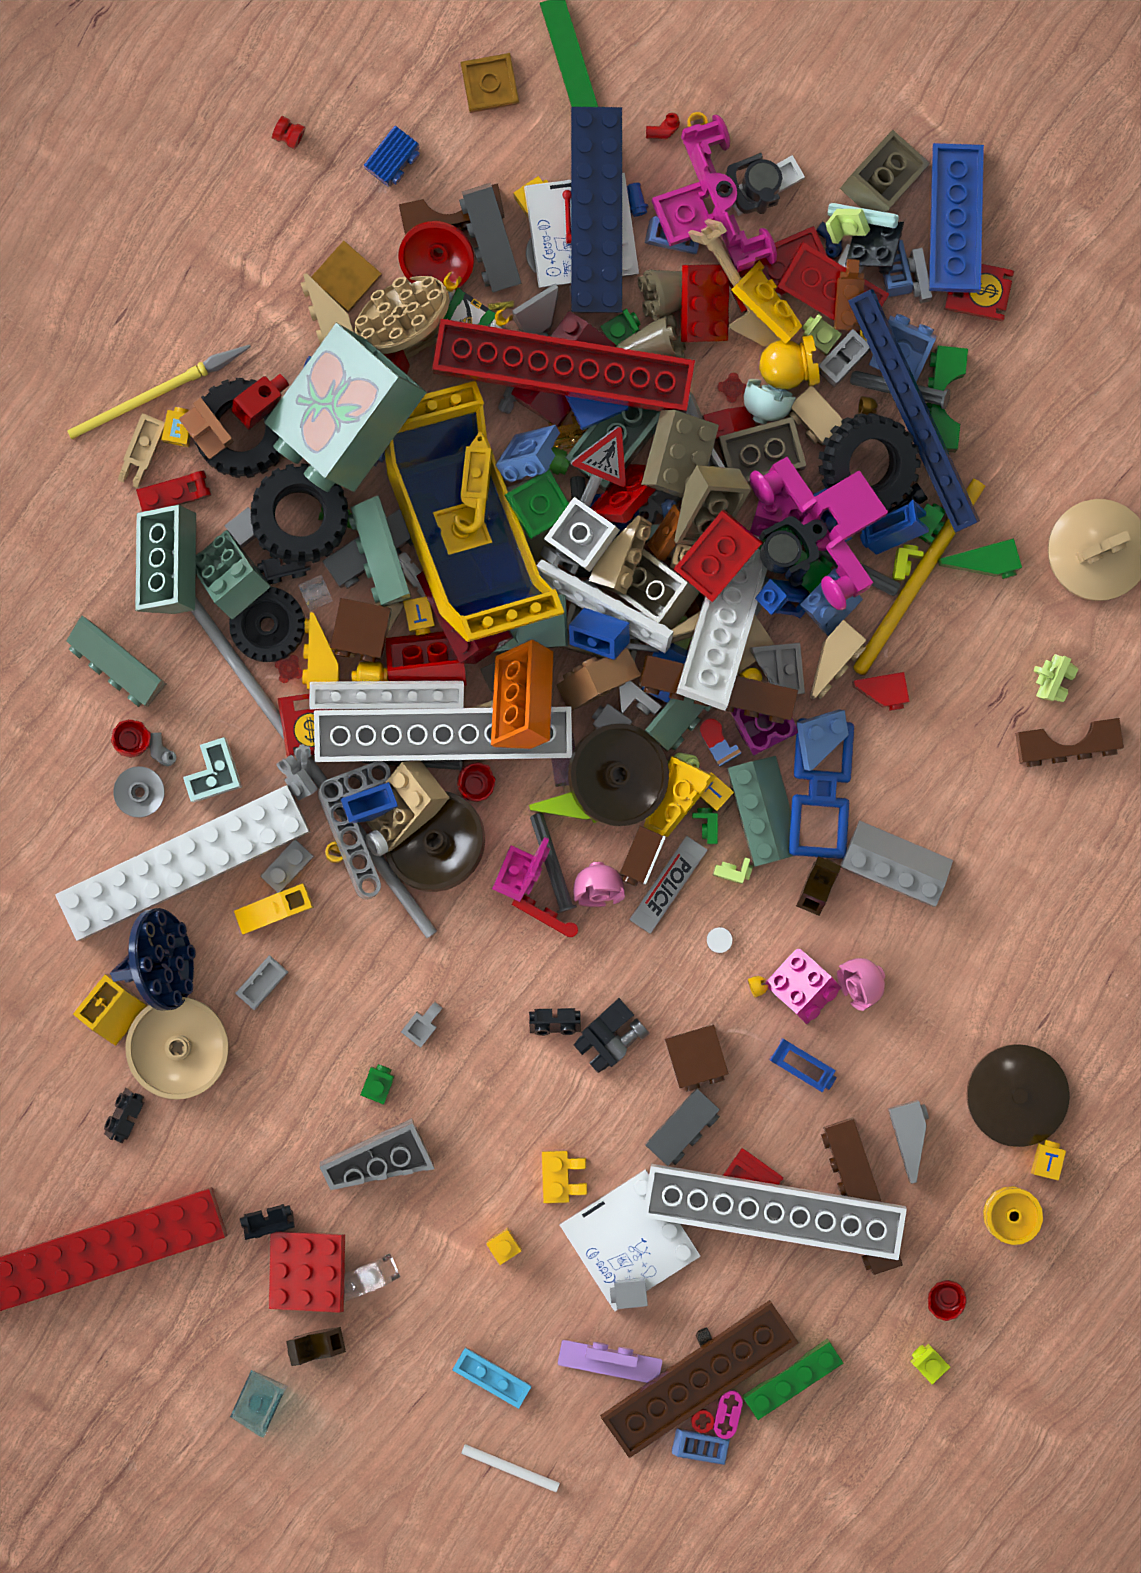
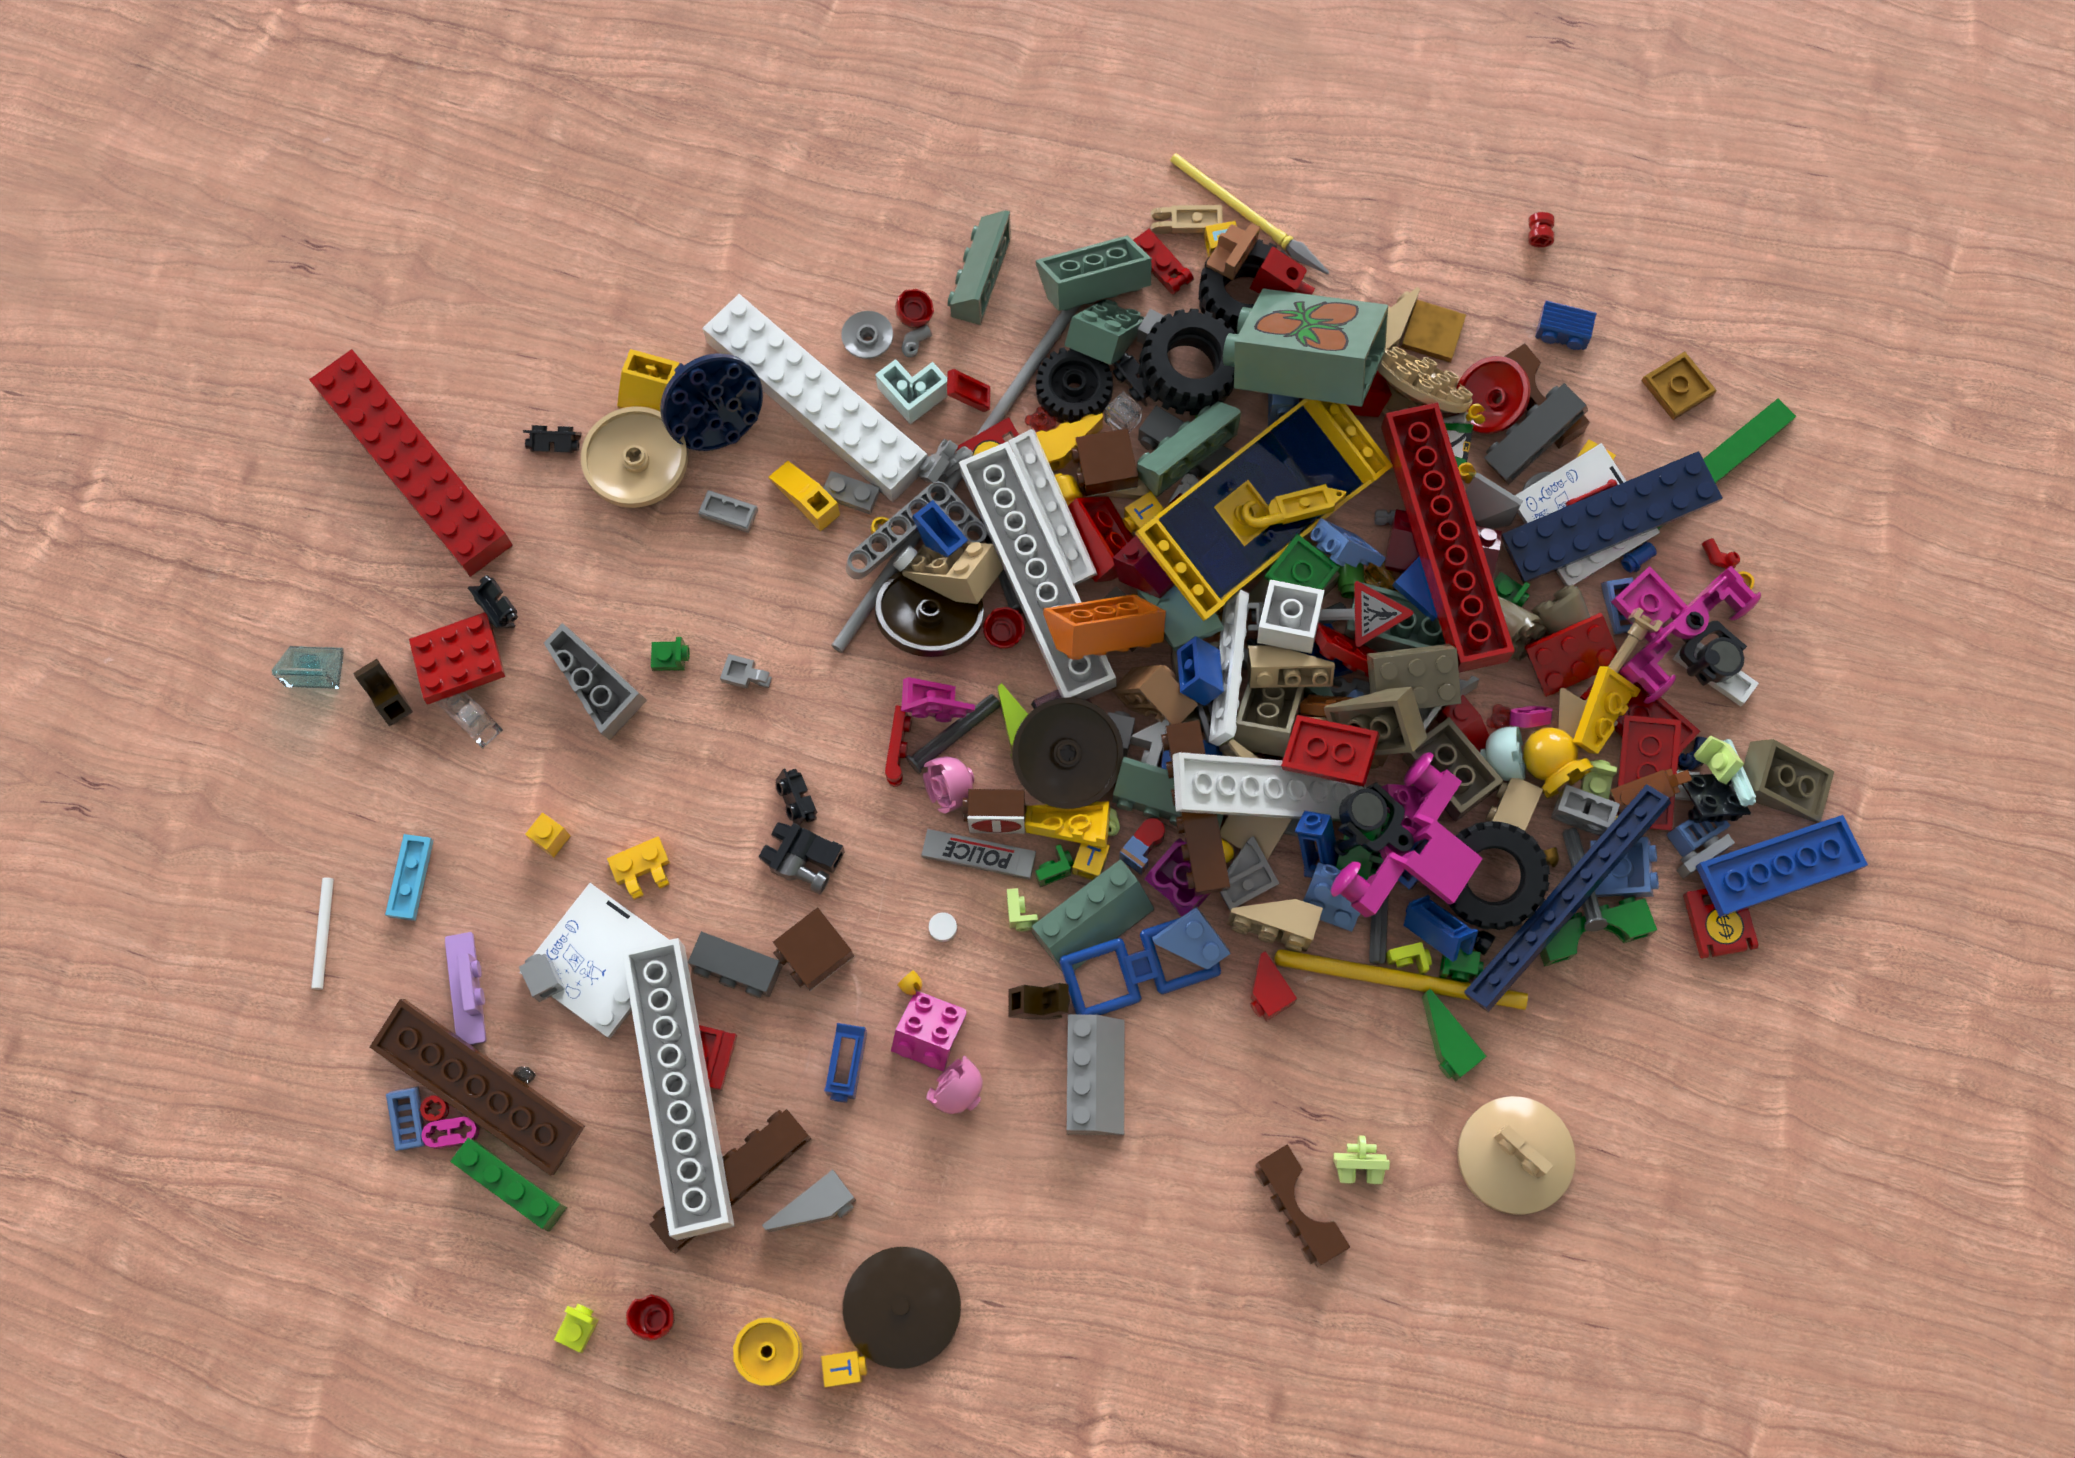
camera: 70 degrees right, 15 degrees down
(236, 722) = (968, 390): none -> red tile
(743, 364) = (1530, 716): none -> dark pink beam

